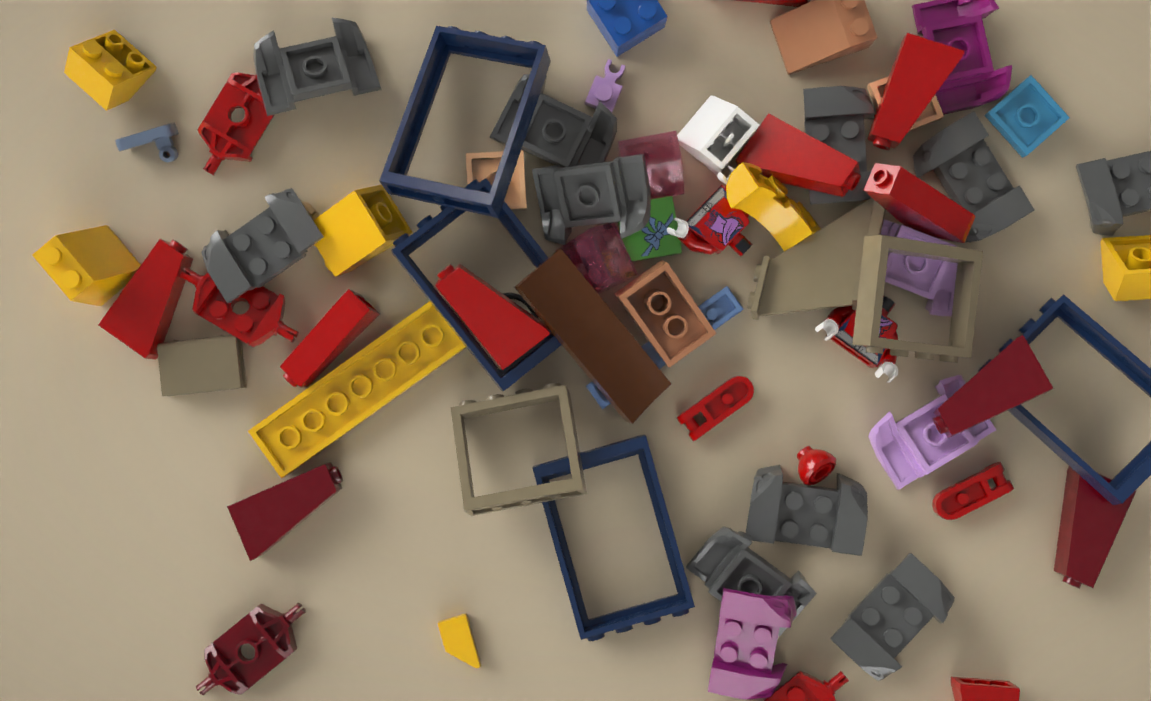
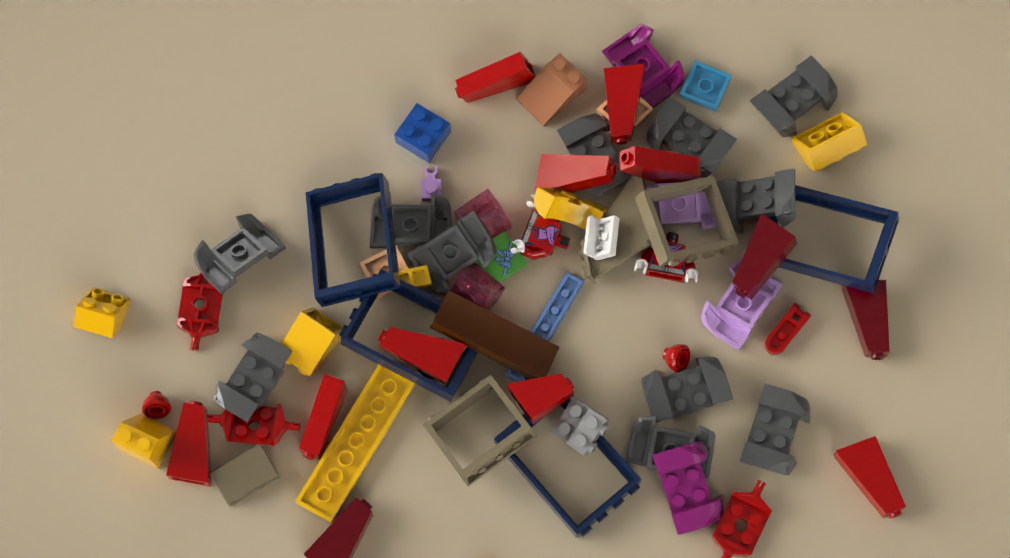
camera: 20 degrees left, 15 degrees down
(127, 224) = (156, 406): none -> red brick
(160, 135) = (153, 339): sand blue piece -> none
(528, 207) = (416, 276): none -> yellow tile
(618, 443) = (541, 395): none -> red slope
(650, 506) = (581, 426): none -> light grey plate
(665, 313) = (534, 304): nougat slope -> none
(717, 133) = (515, 180): white slope -> none
(717, 405) = (596, 348): red plate -> none
(794, 266) = (601, 237): none -> white bracket
(1031, 308) = (760, 196): none -> dark grey piece

